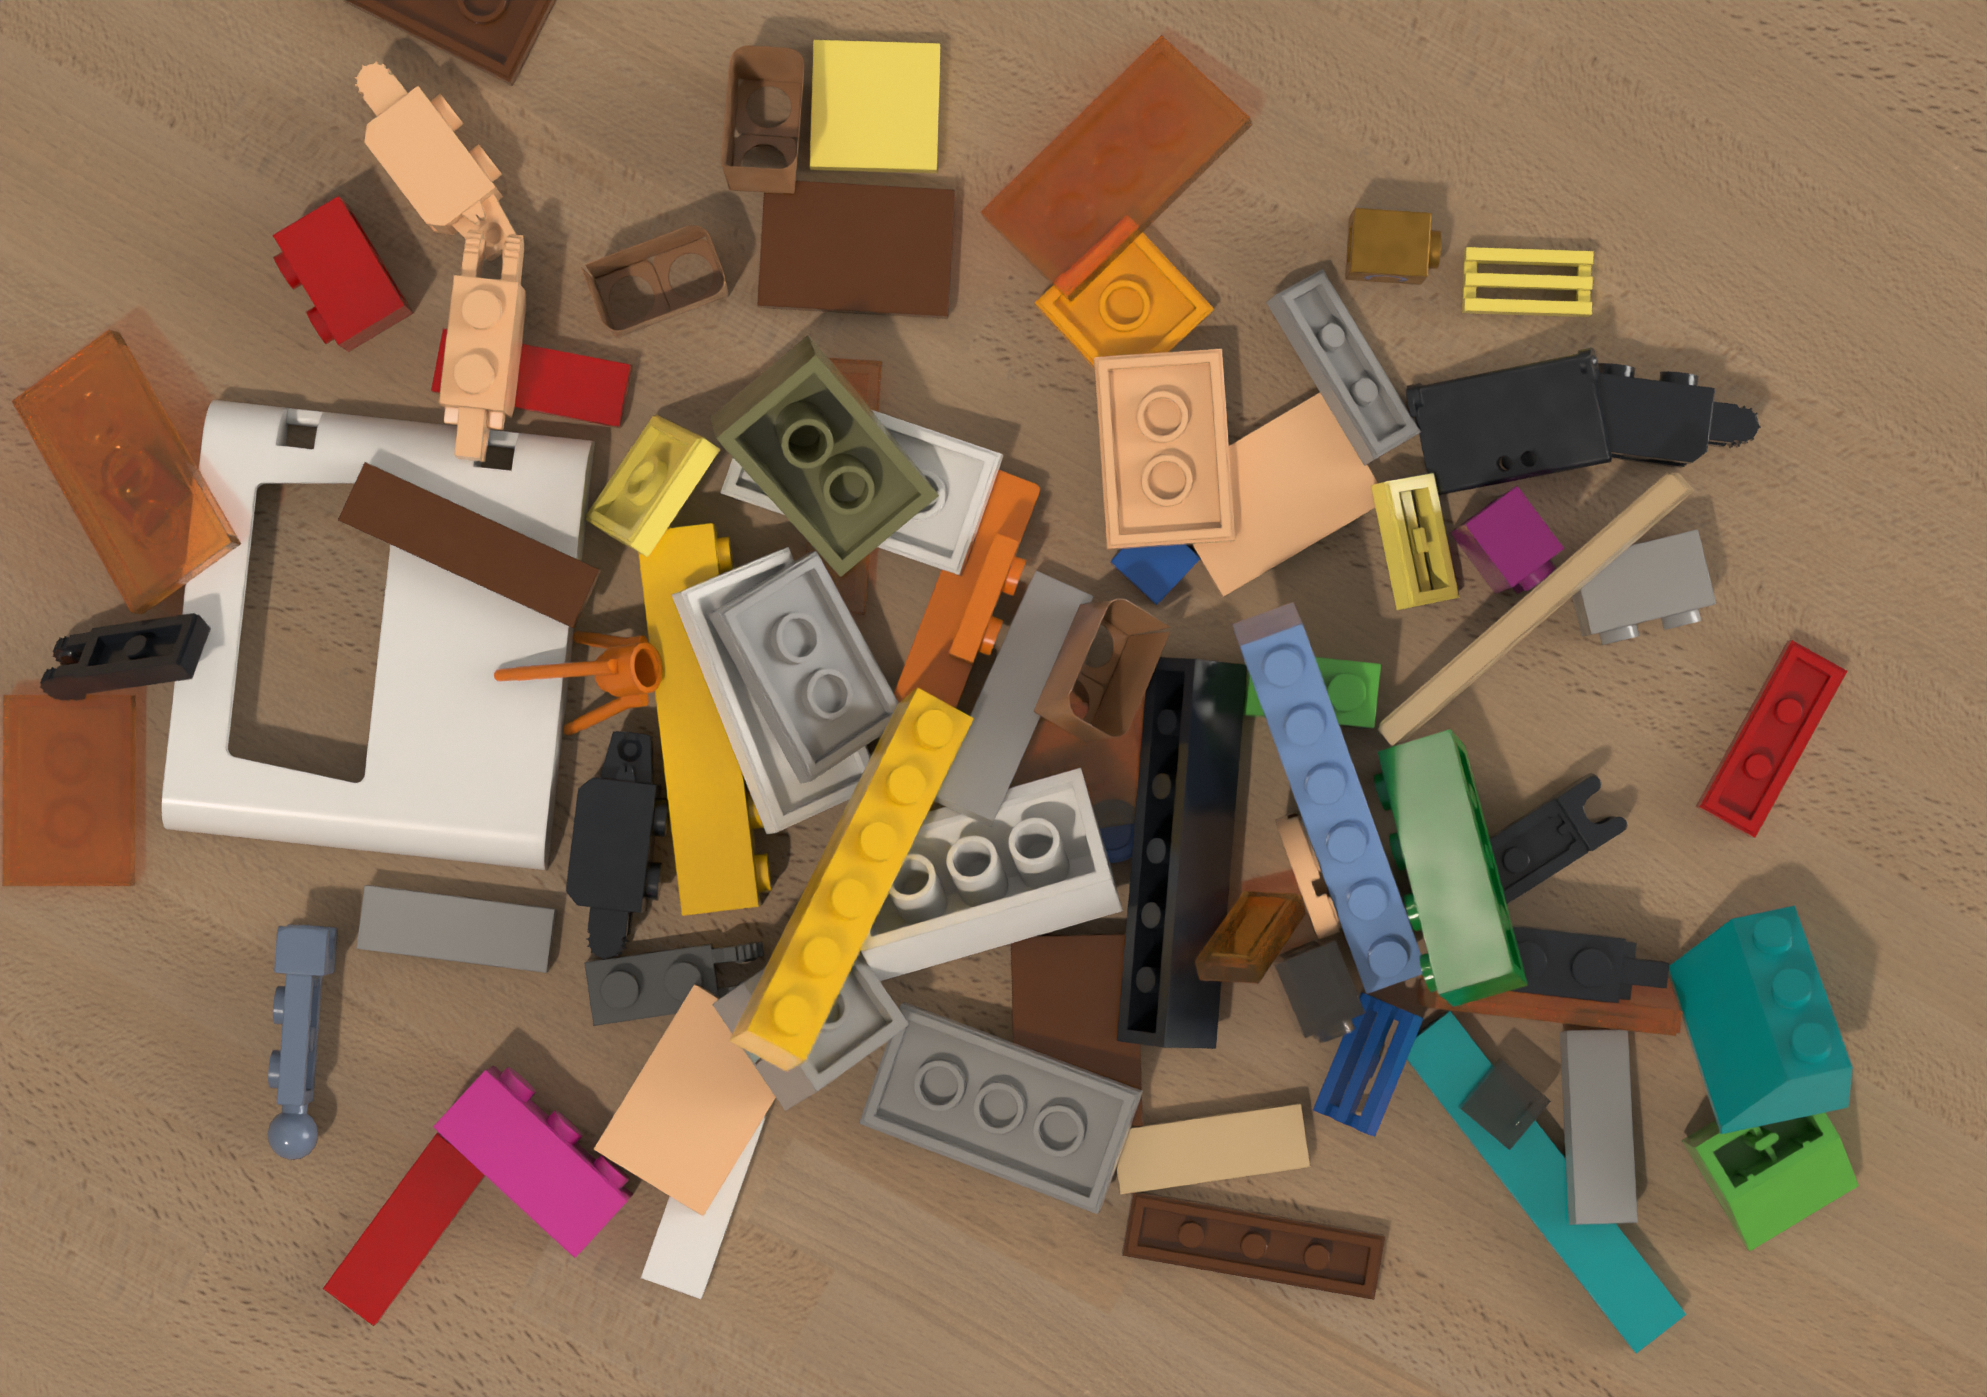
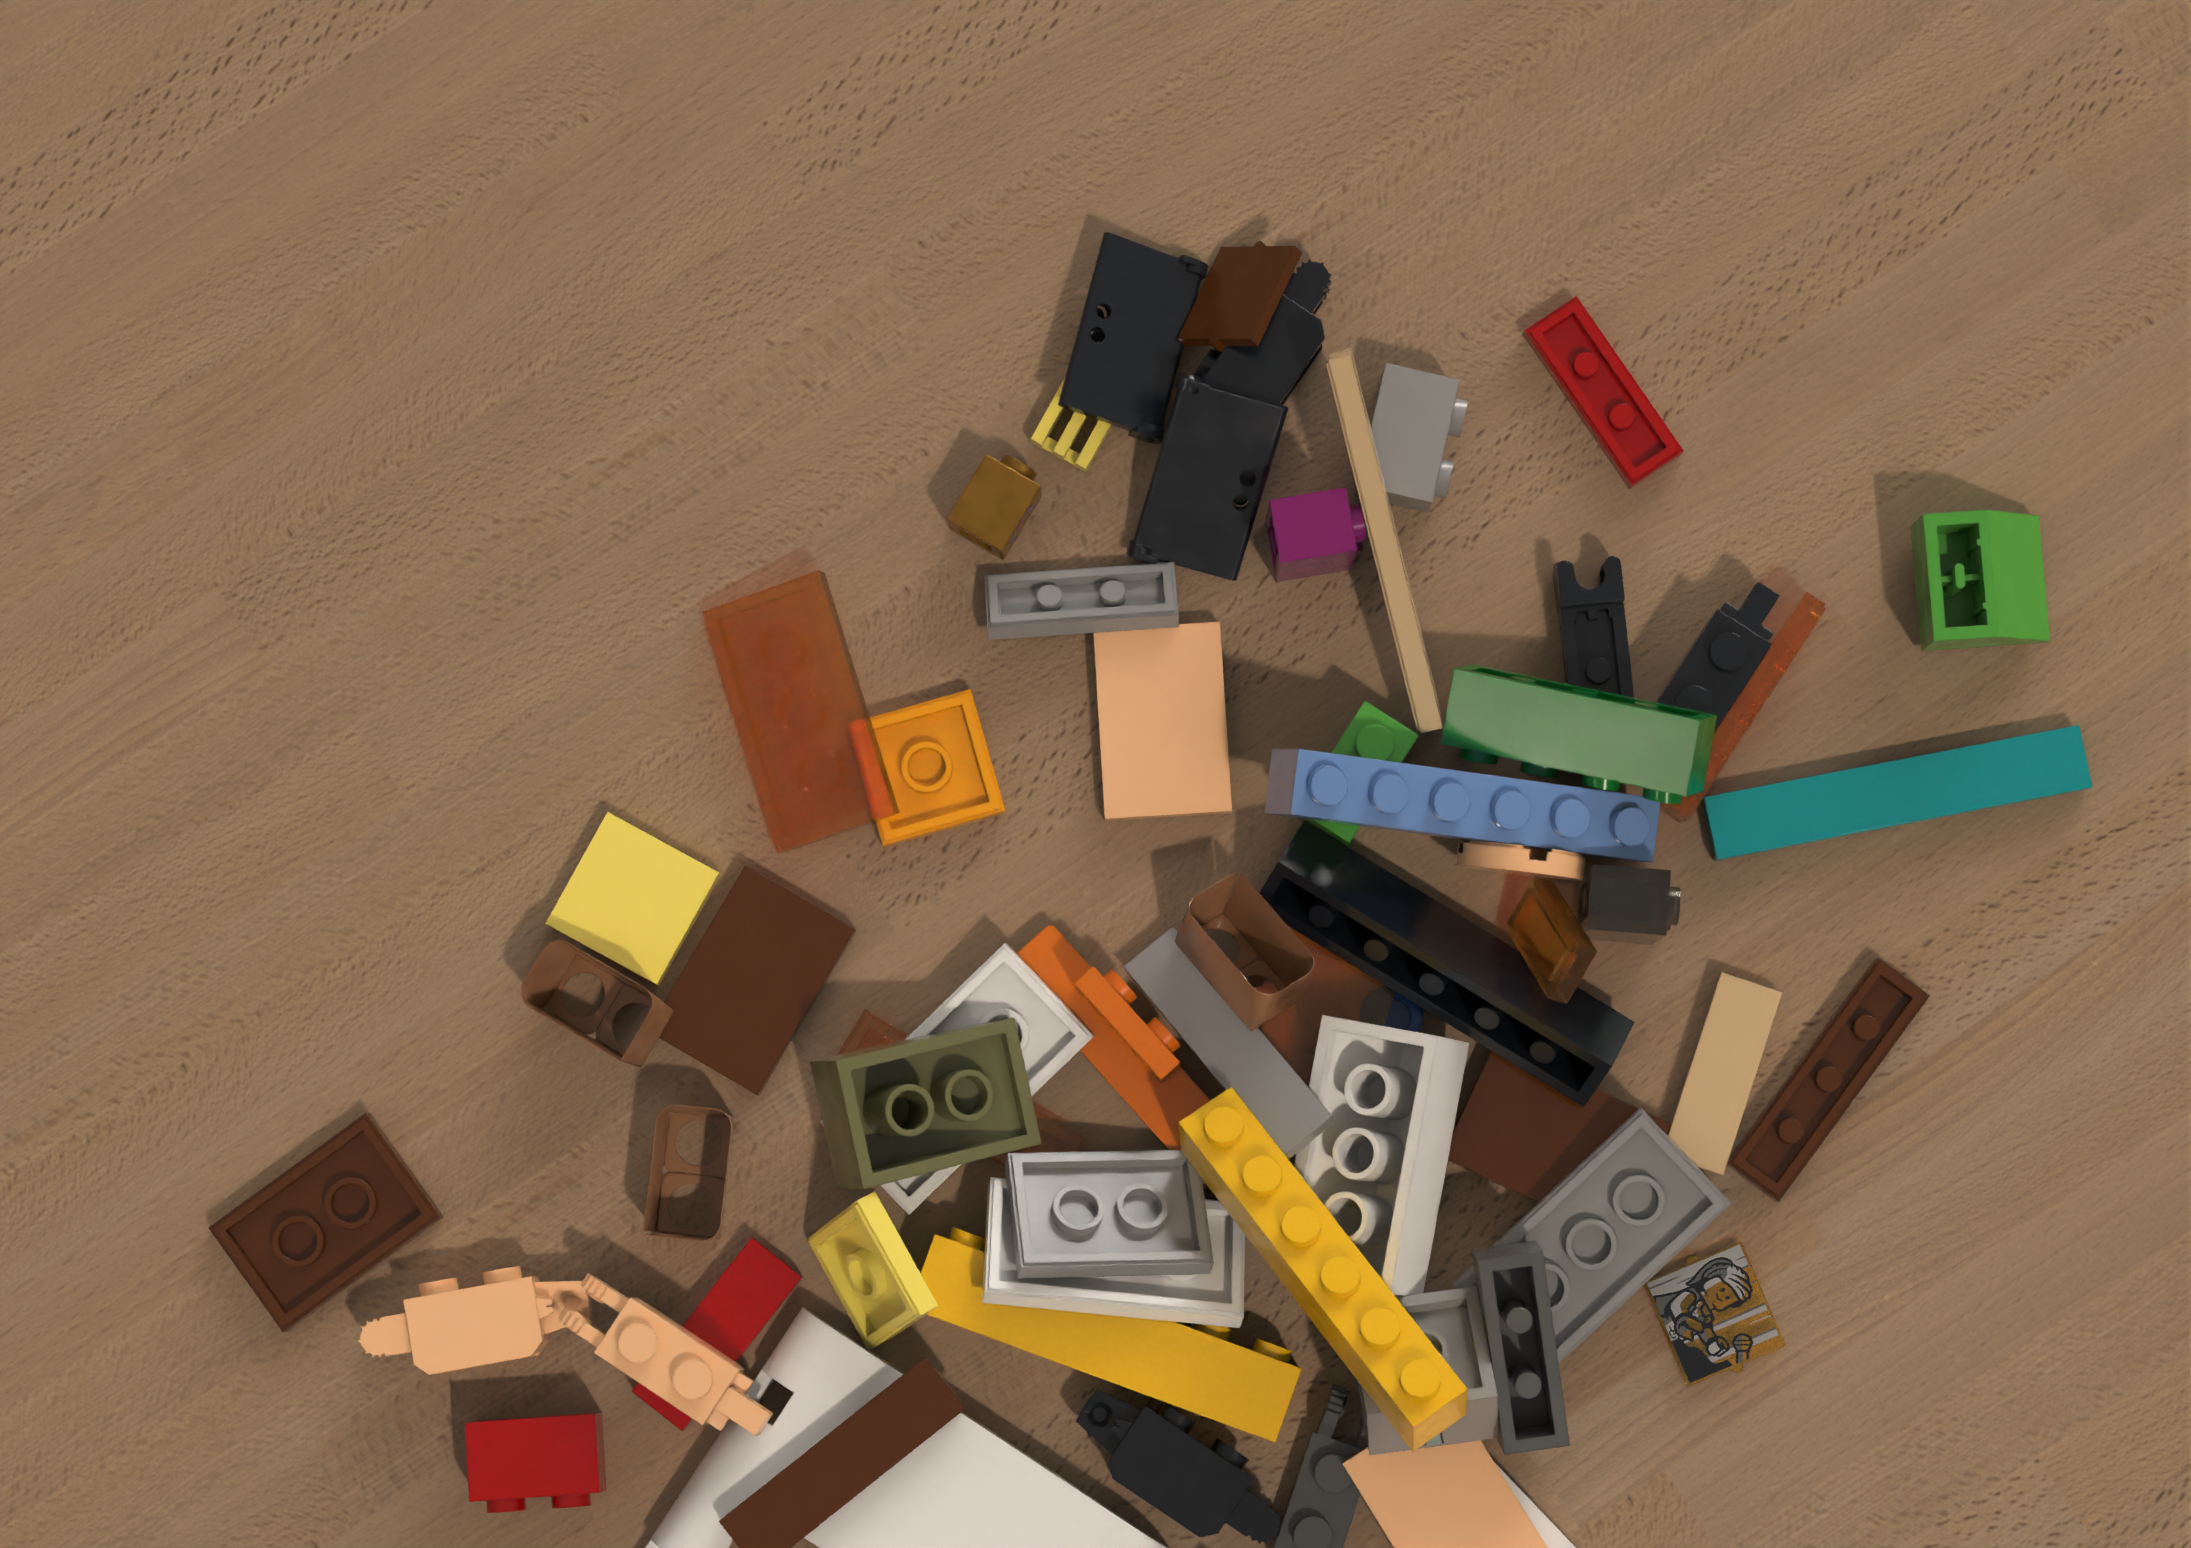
camera: 60 degrees left, 5 degrees down
(624, 670) = (1028, 1378): orange plant -> none
(874, 1090) = (1521, 1346): none -> dark grey brick
(994, 1247) = (1714, 1314): none -> piece
(1155, 569) = (1168, 855): blue tile -> none
(1164, 449) = (1074, 796): light nougat tile -> none
(1348, 1055) = (1737, 883): blue tile -> none
(1406, 543) = (1267, 624): light yellow tile -> none
(1504, 1104) = (1811, 790): clear smoke tile -> none
(1598, 1127) = (1873, 718): light grey tile -> none
(1607, 300) = (1136, 362): none -> black door
(1691, 367) = (1239, 296): none -> reddish brown piece
(1761, 1023) = (1852, 527): teal slope -> none

